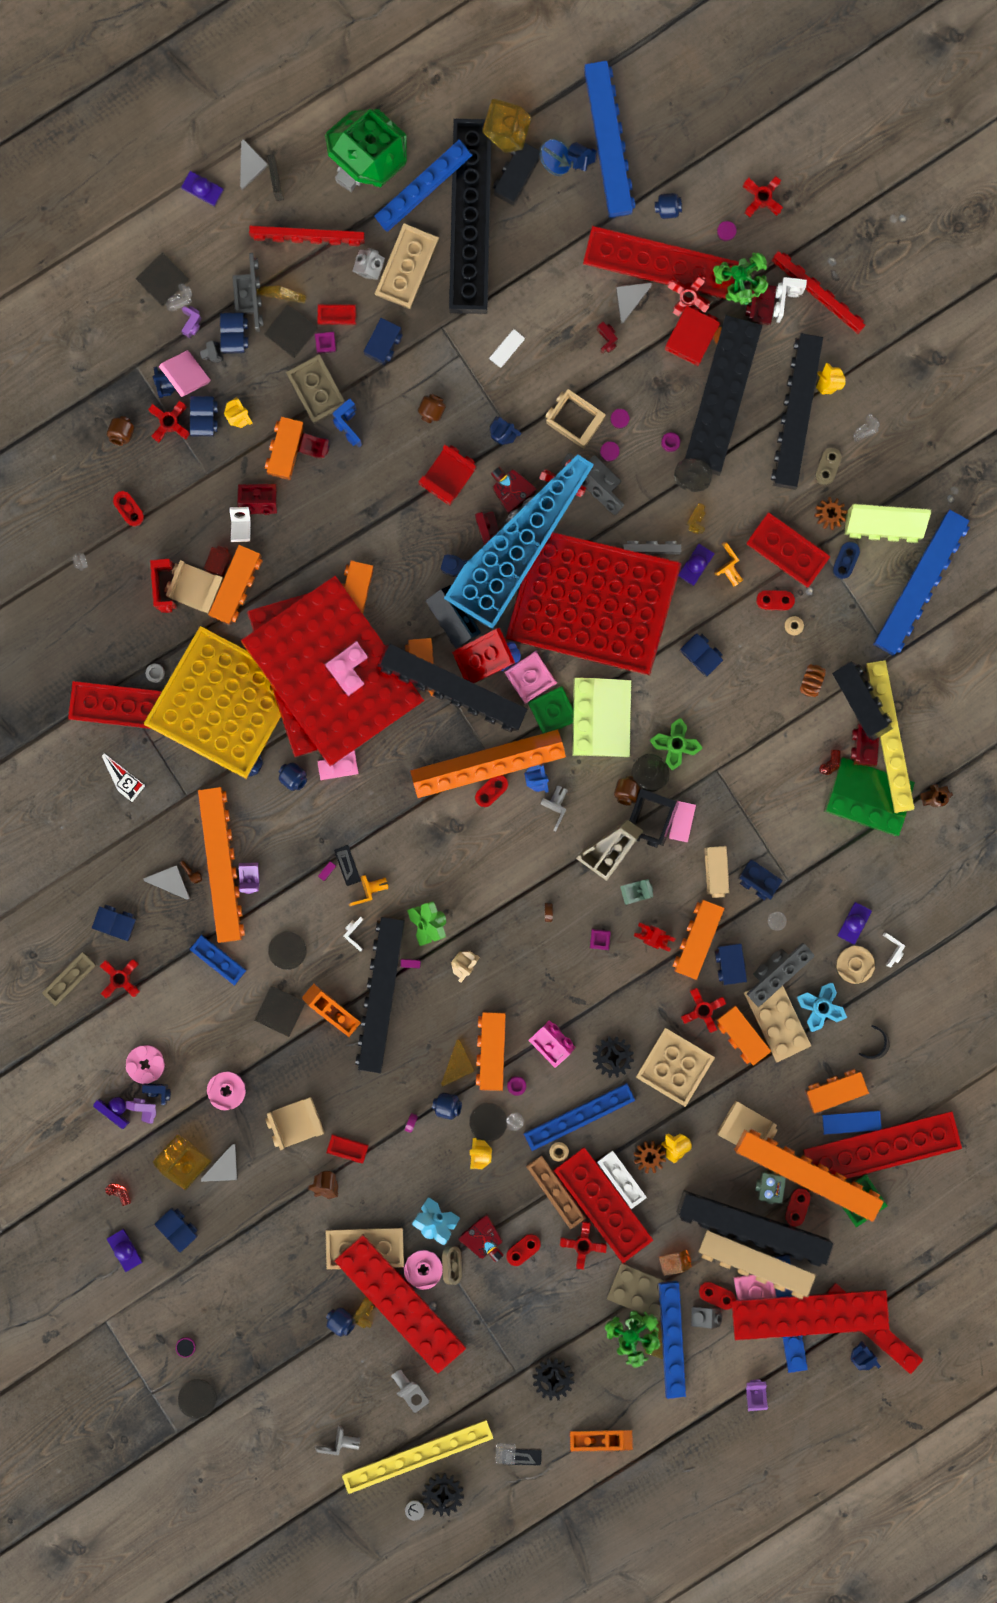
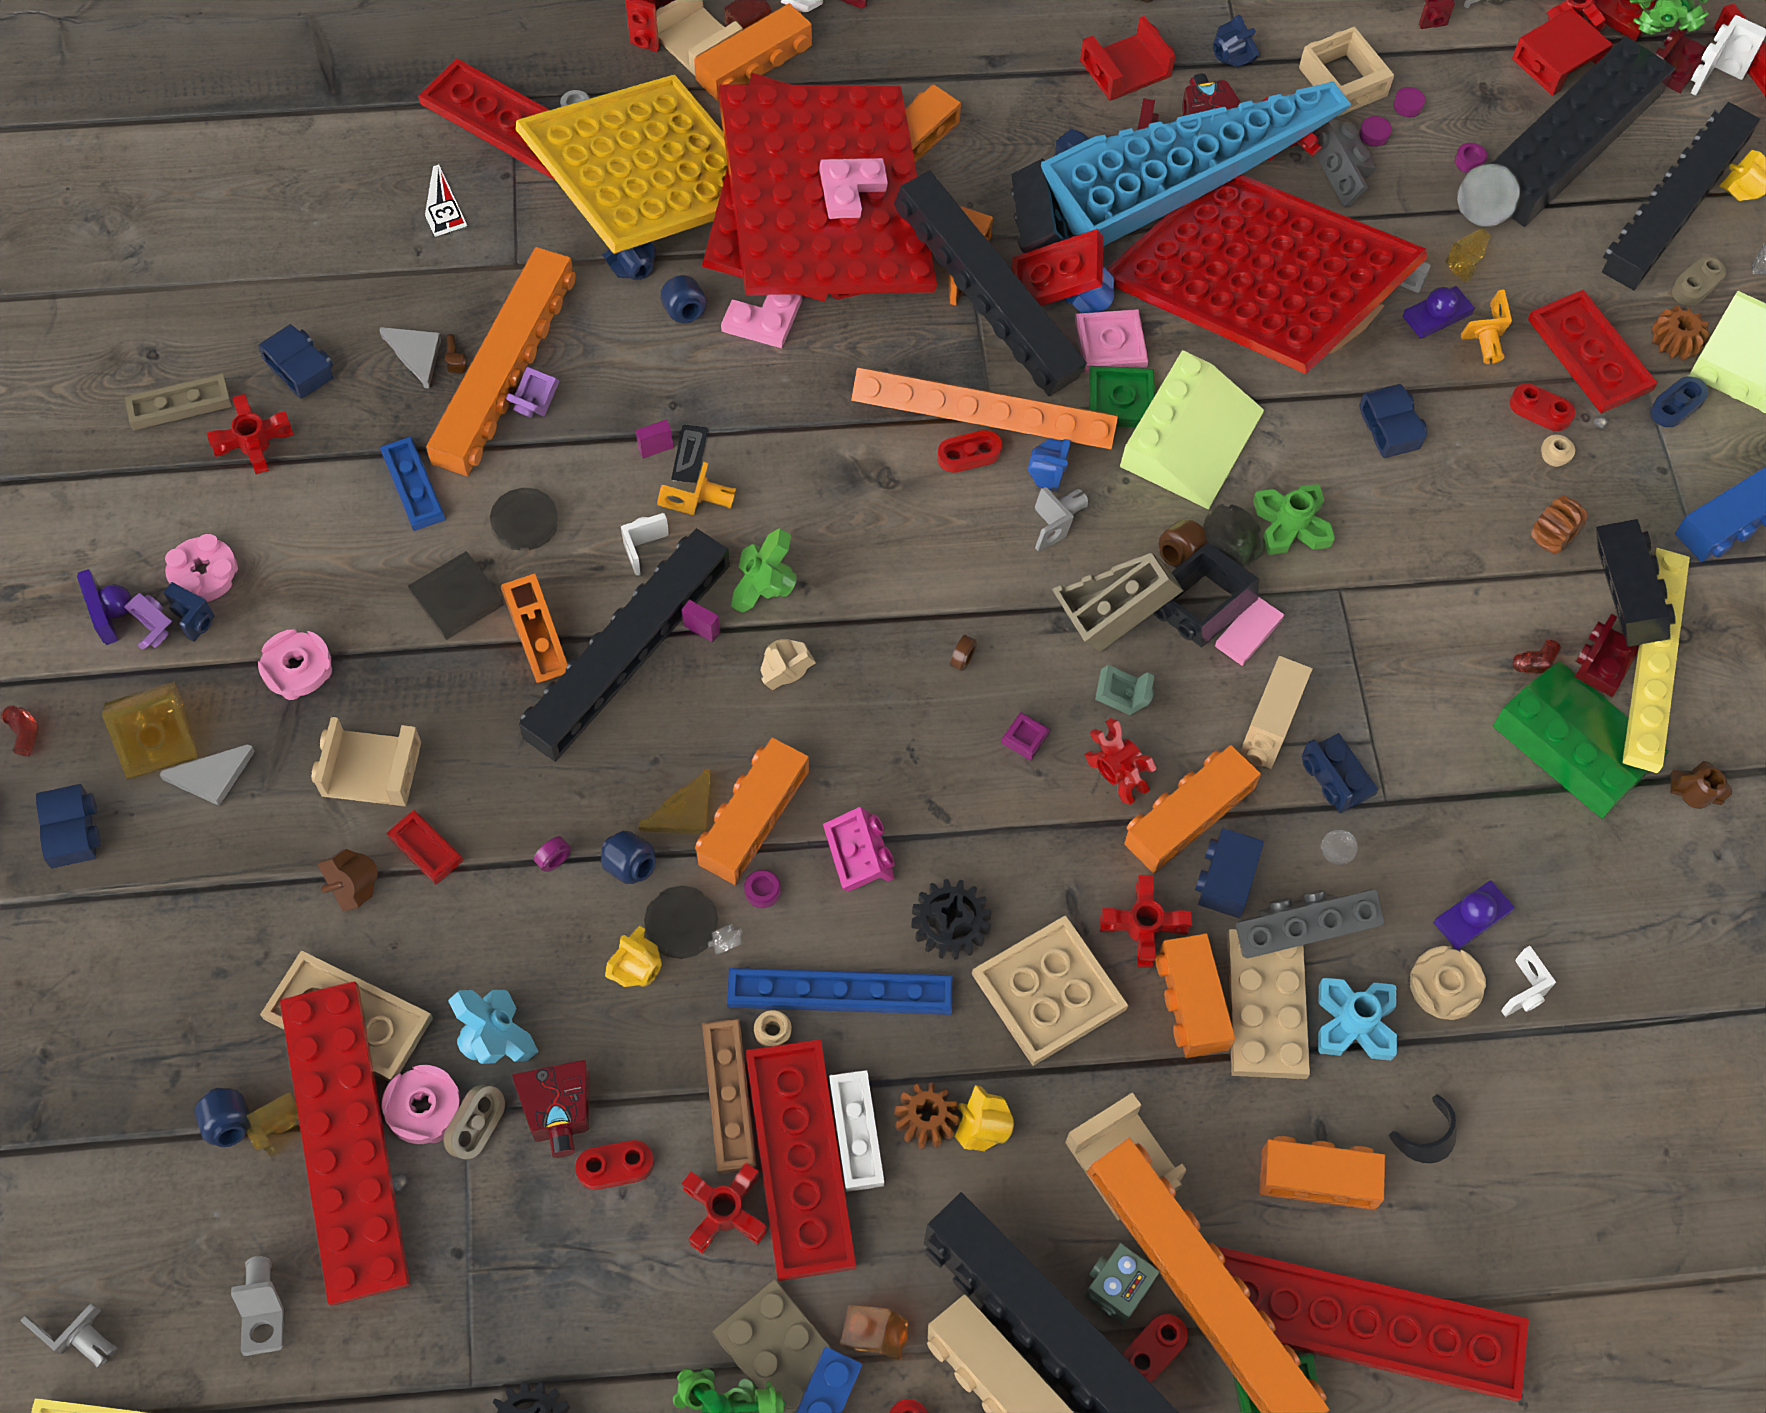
camera: 25 degrees right, 25 degrees down
(851, 1122) = (1324, 1245): blue tile -> none

